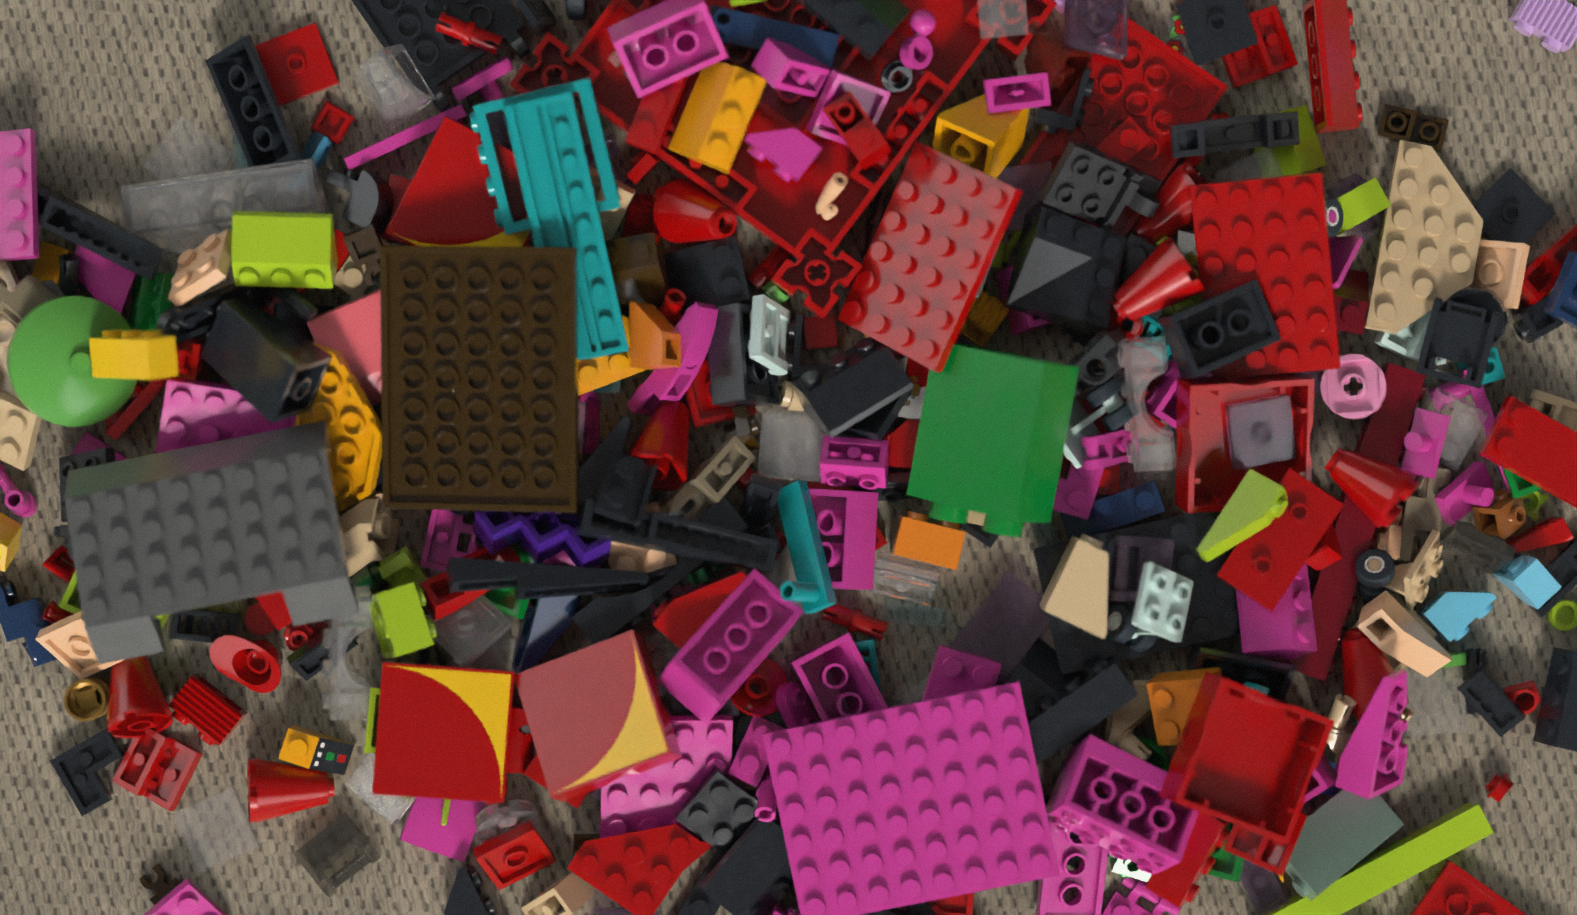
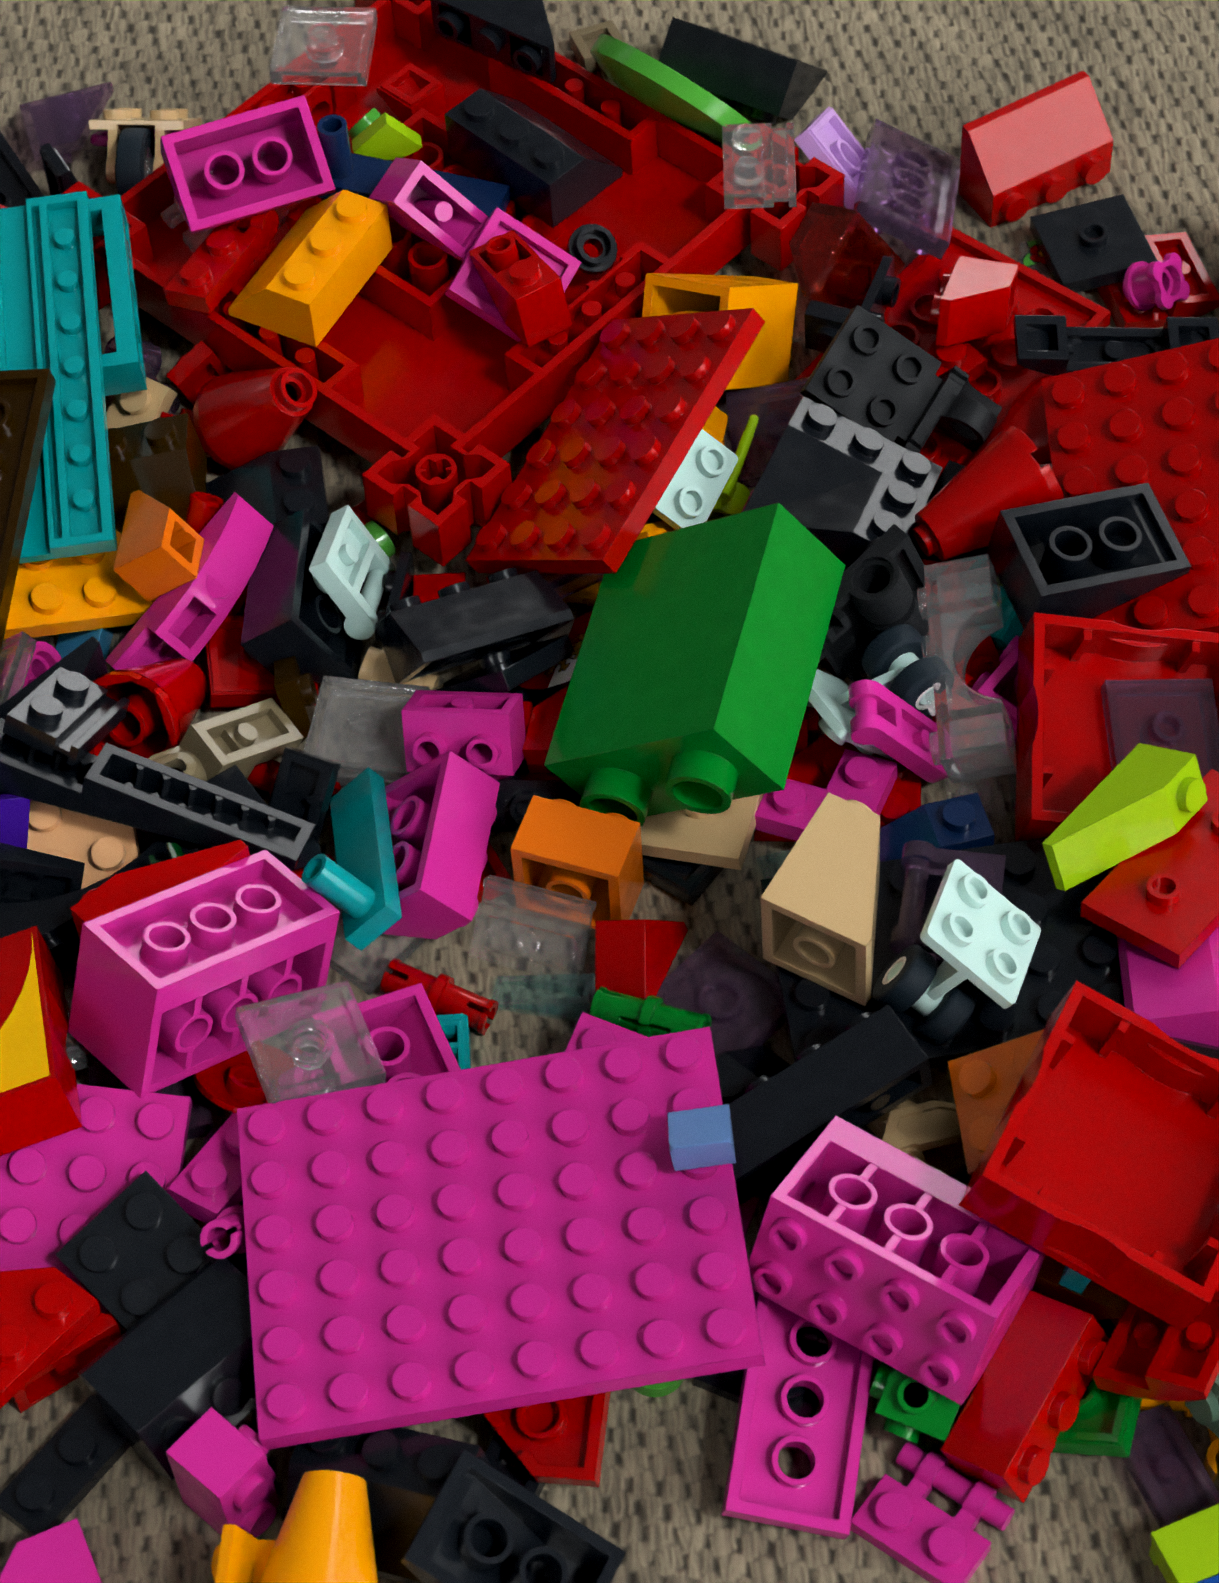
camera: 15 degrees right, 35 degrees down
(786, 149) = (406, 306): dark pink slope -> none
(795, 687) = (310, 1043): none -> clear plate
(829, 193) = (462, 376): light nougat arm -> none
(917, 50) = (624, 207): dark pink plate -> none
(964, 594) = (635, 954): none -> red slope
(977, 640) = (646, 1015): none -> green pin
(1017, 92) = (774, 260): dark pink slope -> none
(1021, 759) = (701, 1137): none -> medium blue slope
(1145, 99) = (974, 300): none -> red slope
(1257, 64) = (1155, 283): none -> dark pink brick

